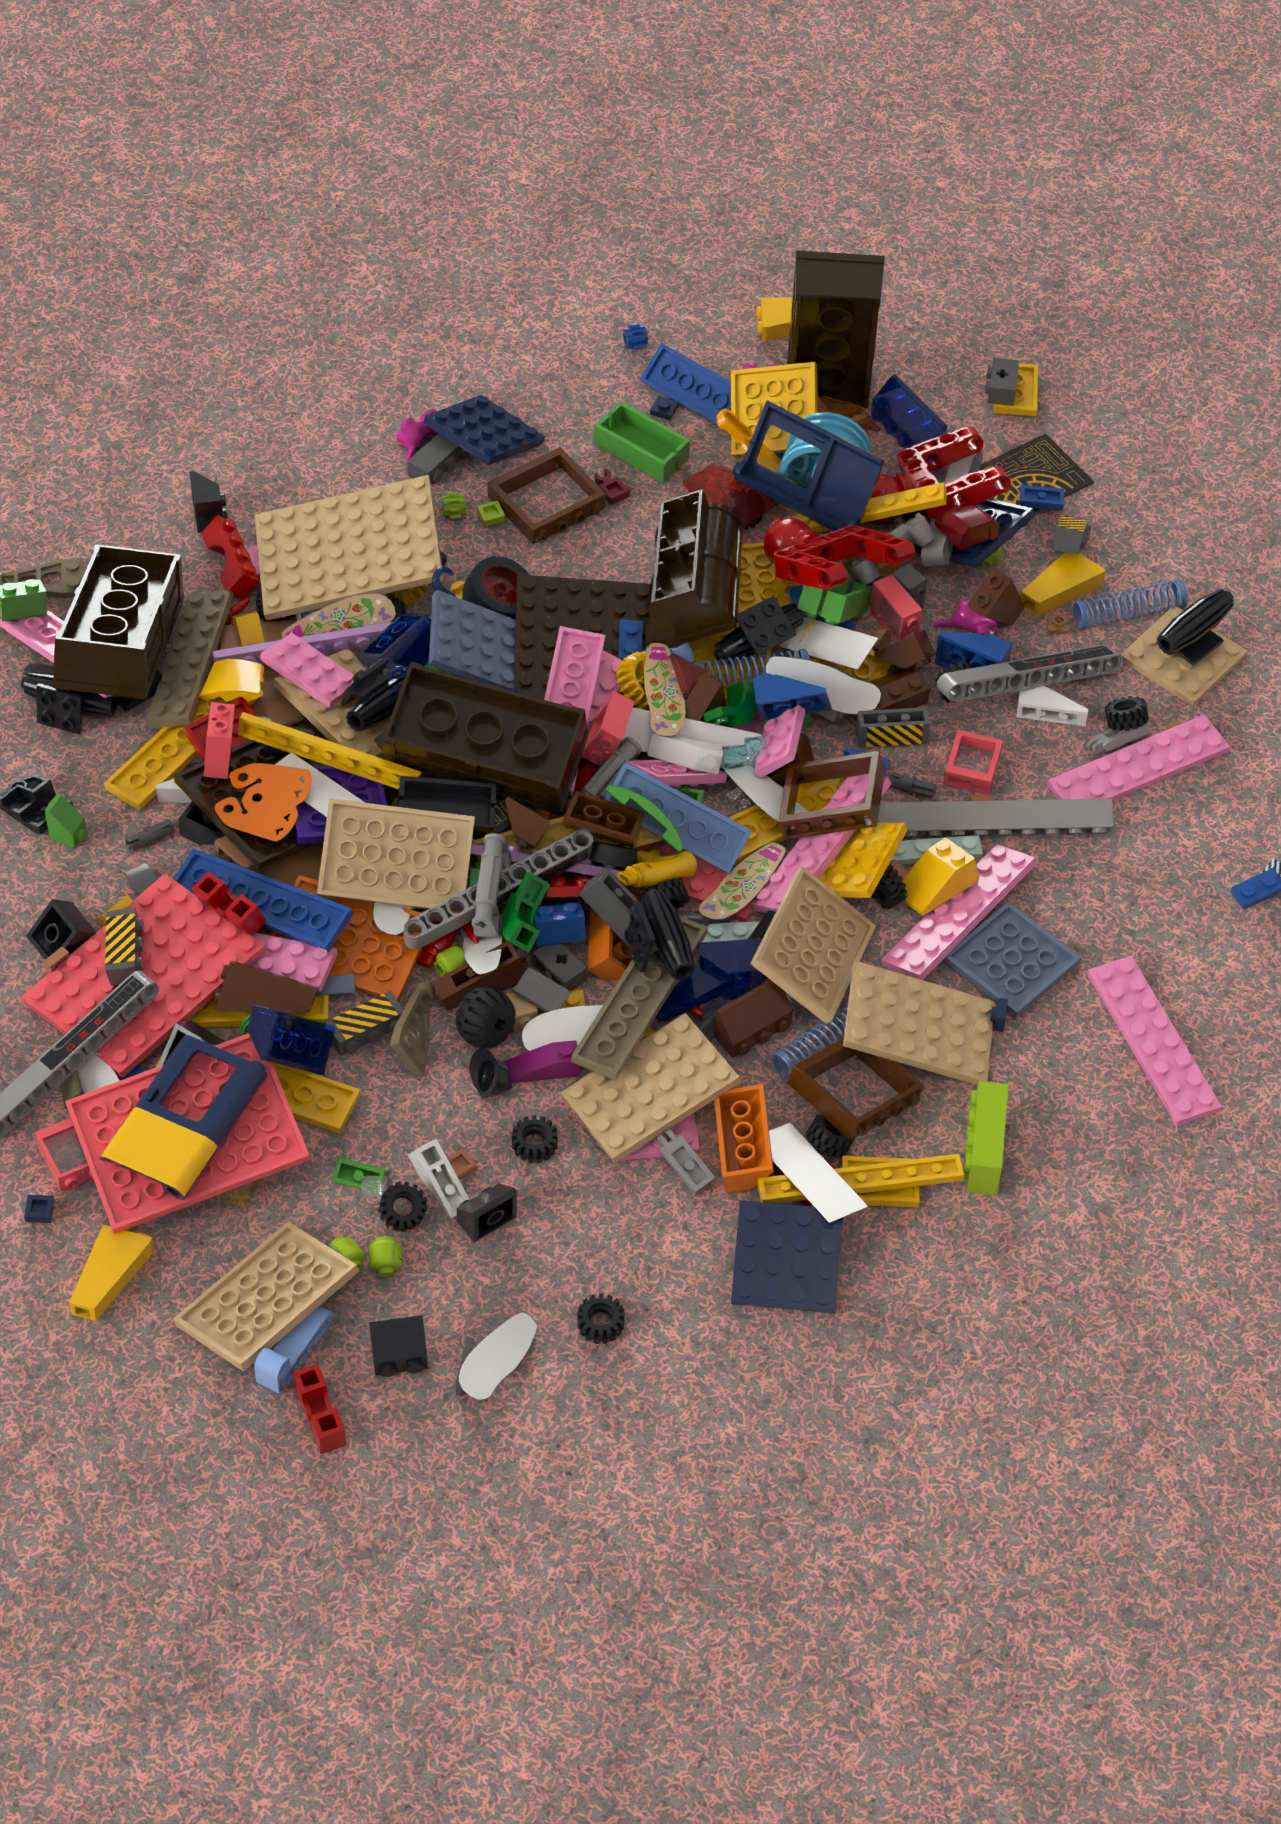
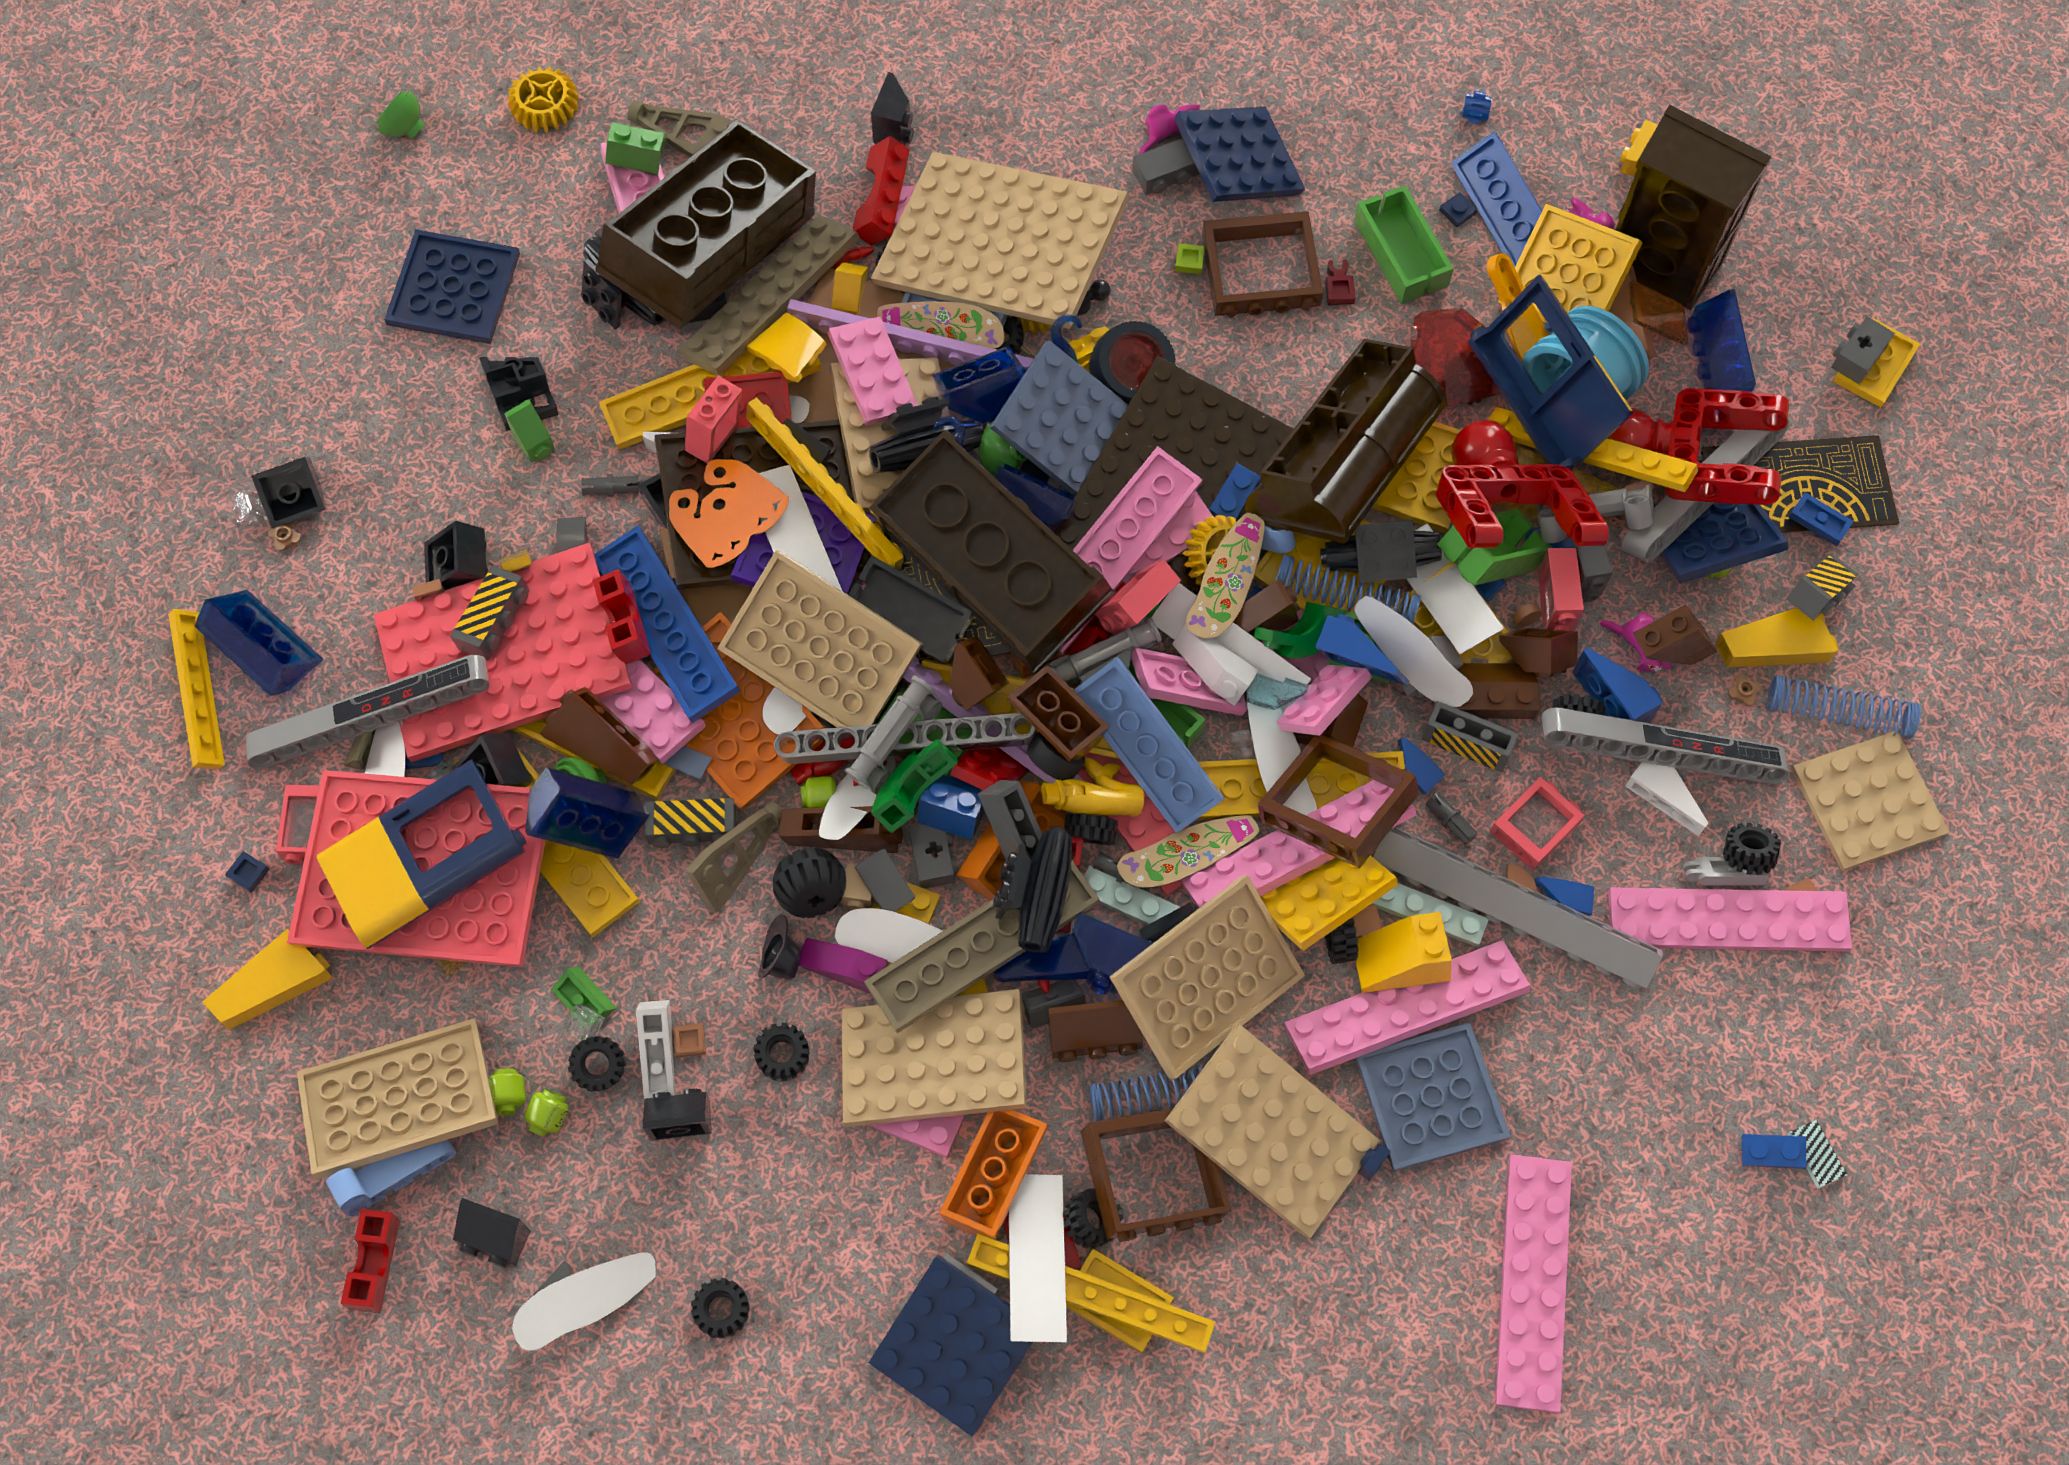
camera: 30 degrees right, 15 degrees up
(453, 505) = (1154, 231): lime gear -> none
(670, 834) = (1091, 696): bright green slope -> none
(685, 1162) = (919, 1165): light grey hinge -> none
(686, 673) = (1264, 568): clear red slope -> none
(967, 525) = (1695, 527): dark red slope -> none
(985, 1137) = (1260, 1317): lime brick -> none
(1028, 792) = (1570, 893): none -> blue slope
(1191, 631) = (1893, 785): black plate -> none

